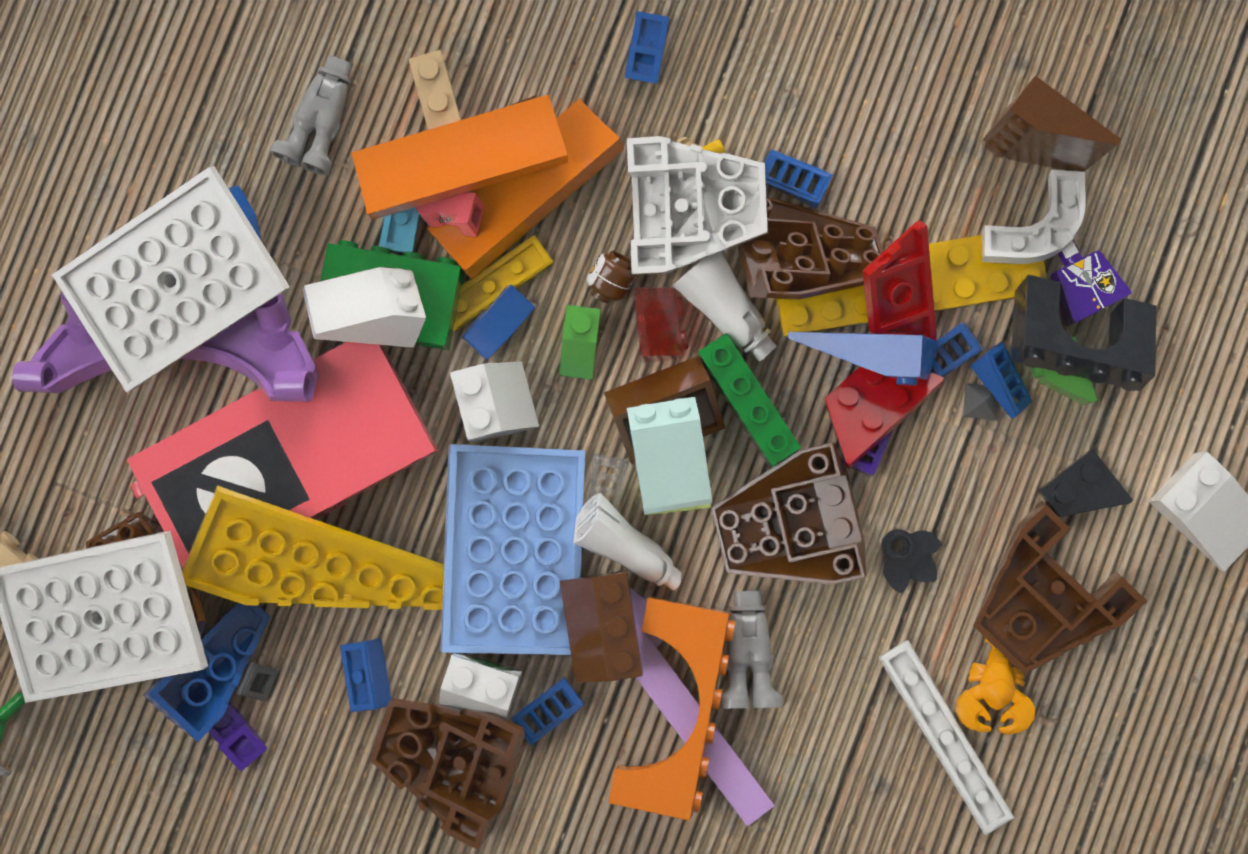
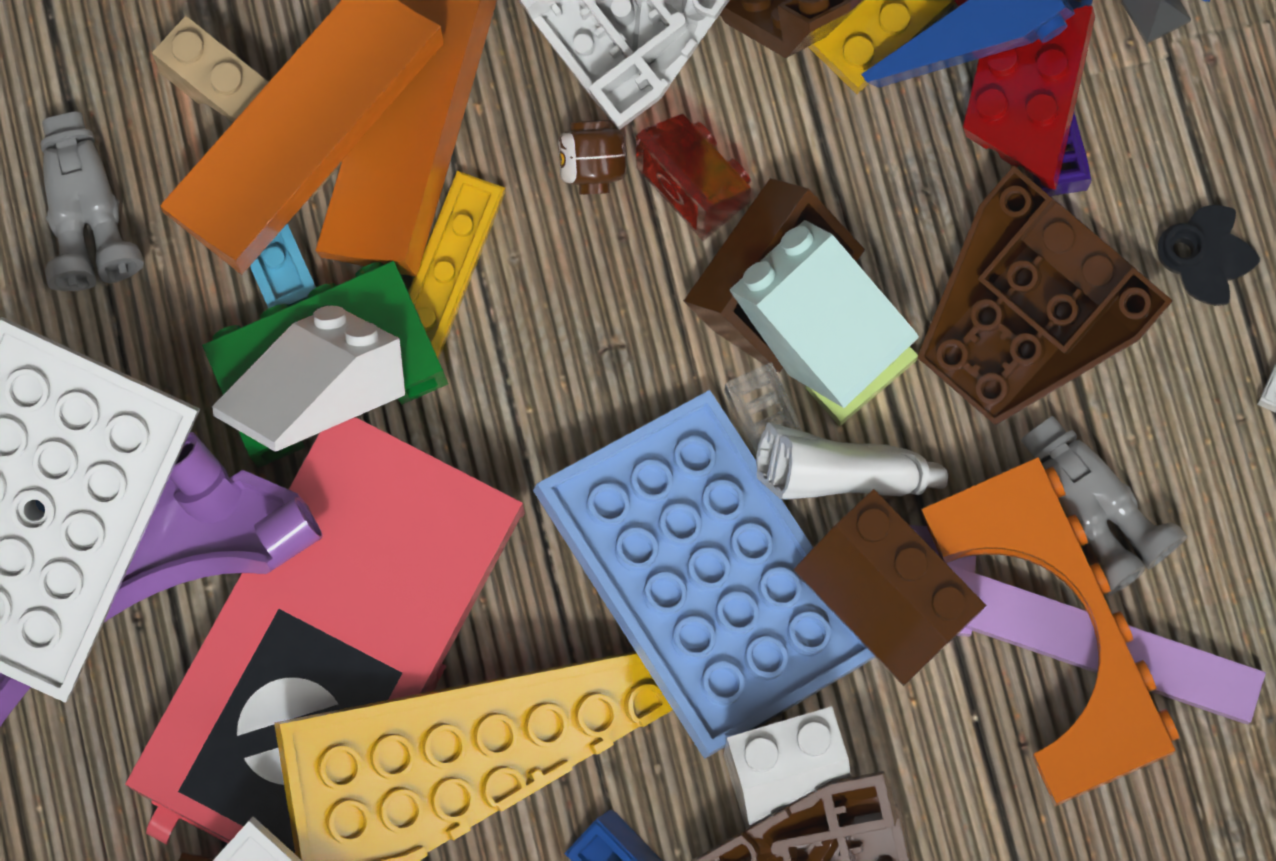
camera: 35 degrees left, 10 degrees down
(459, 210) = (339, 200): coral leg -> none
(494, 400) = (548, 403): white slope -> none
(498, 322) = (488, 304): blue slope -> none
(571, 695) = (906, 706): blue slope -> none
(579, 342) = (608, 260): bright green slope -> none
(719, 296) = (739, 87): white piece -> none
(748, 400) = (875, 192): green piece -> none

